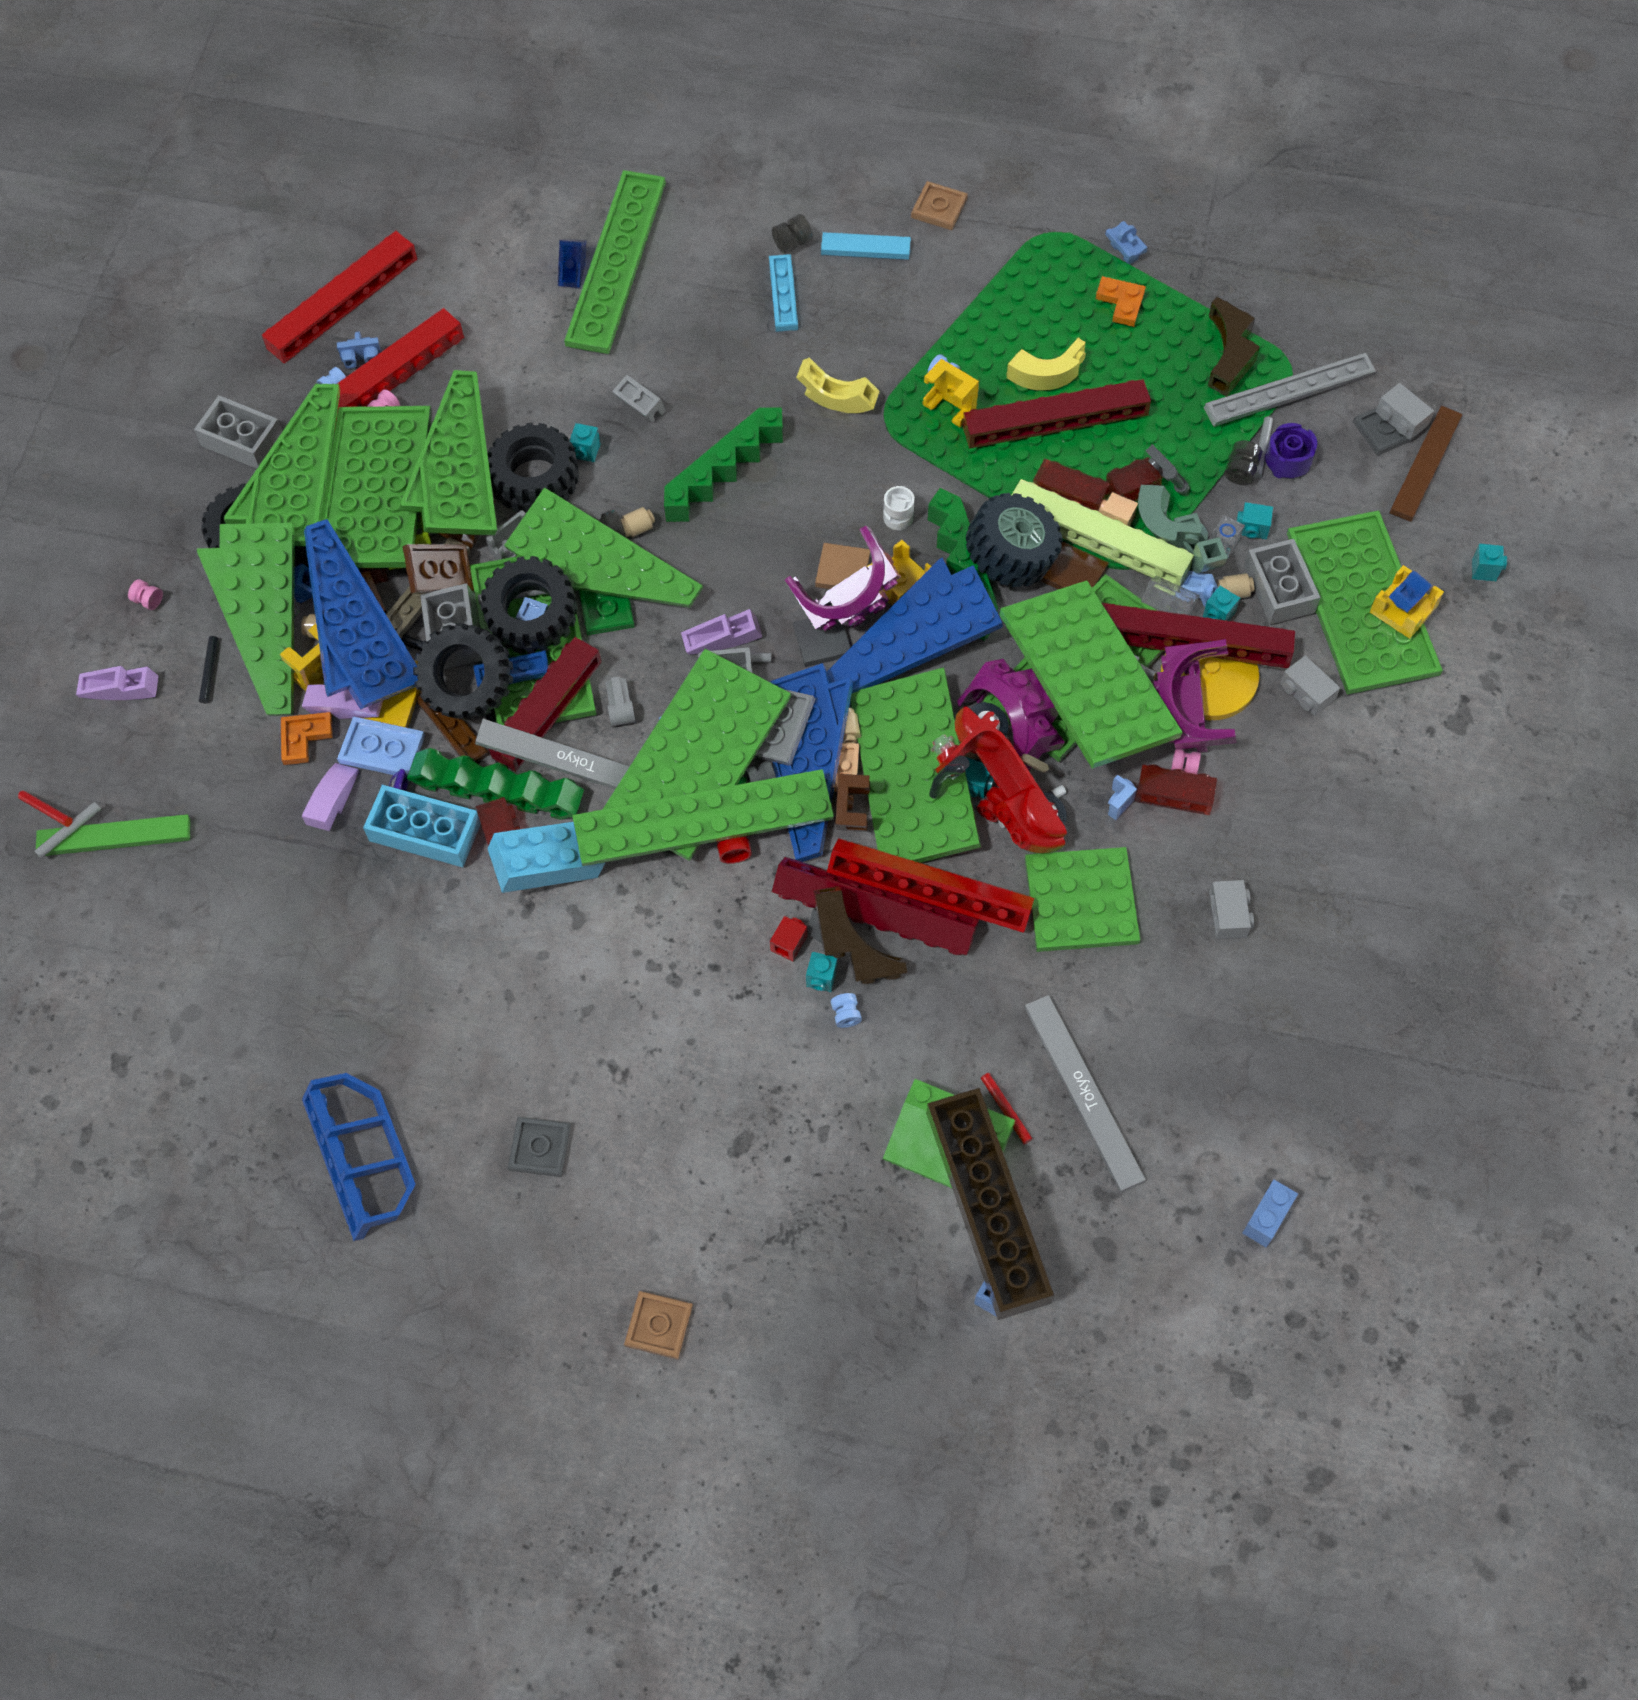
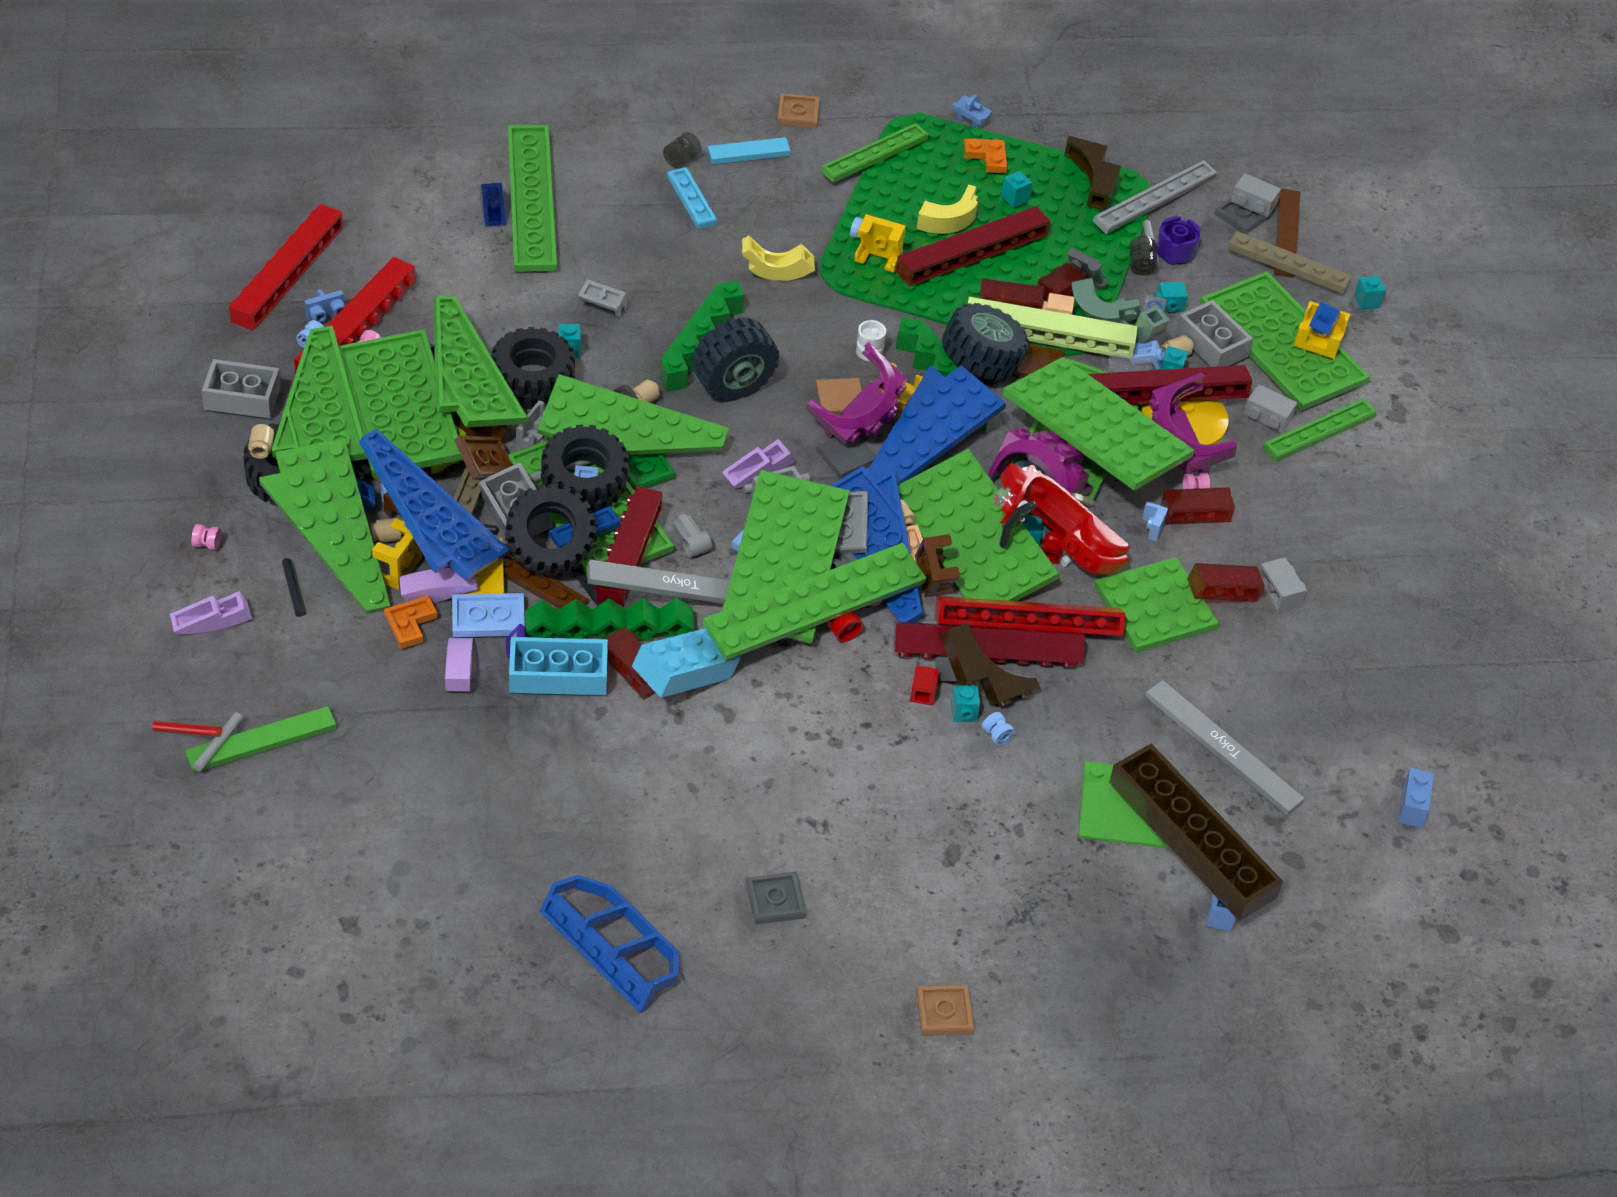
camera: 25 degrees left, 15 degrees down
(218, 504) = (261, 441): none -> tan brick
(736, 506) = (735, 359): none -> black wheel
(997, 274) = (874, 152): none -> bright green tile
(1132, 352) = (1016, 189): none -> teal brick
(1165, 894) = (1226, 582): none -> clear red brick
(1358, 723) = (1319, 430): none -> bright green tile
(1410, 504) = (1289, 262): none -> dark tan plate

